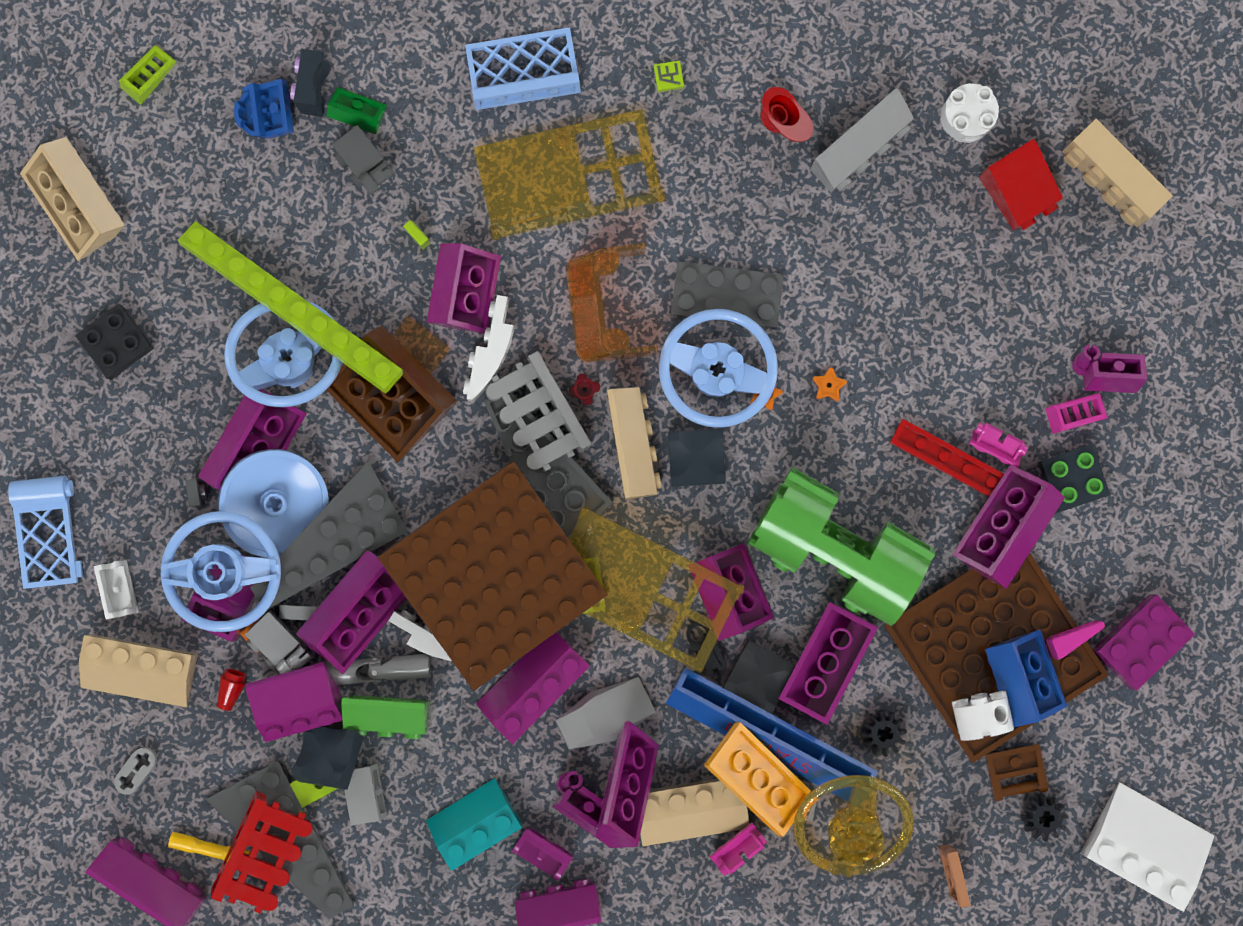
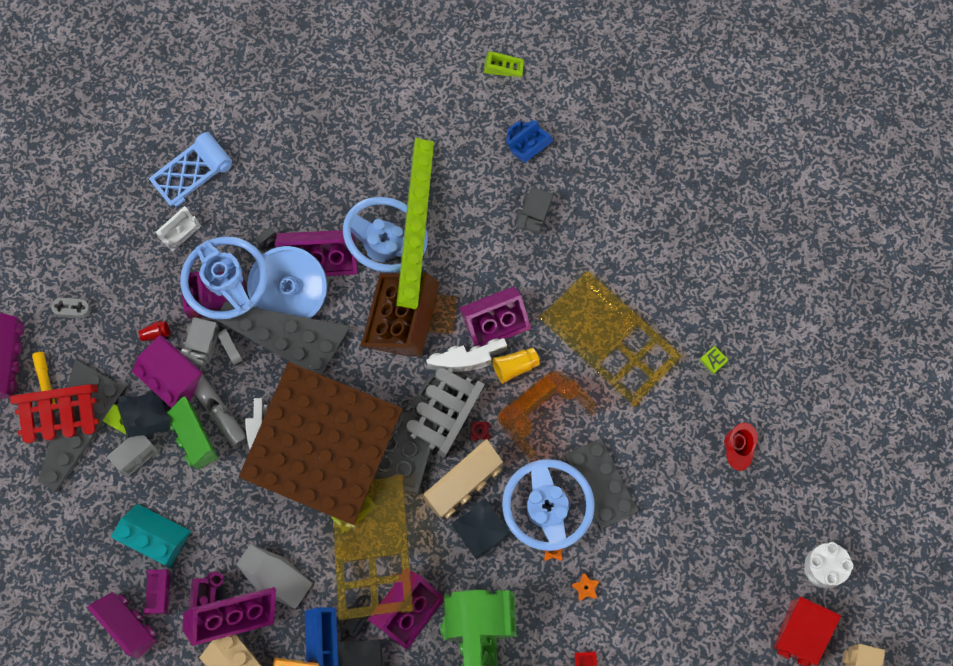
camera: 60 degrees right, 15 degrees down
(71, 197) = (402, 67): tan slope -> none
(114, 341) = (331, 140): black brick -> none
(136, 670) = (135, 270): tan slope -> none
(311, 74) = (560, 152): black brick -> none
(352, 613) = (243, 373): magenta slope -> none
(356, 110) = (562, 190): green slope -> none
(418, 236) = (510, 269): lime tile -> none
(529, 89) = (645, 280): light blue fence -> none
(532, 686) = (265, 517): magenta slope -> none
(533, 301) = (515, 364): none -> yellow plant
(863, 141) = (759, 506): light grey slope -> none

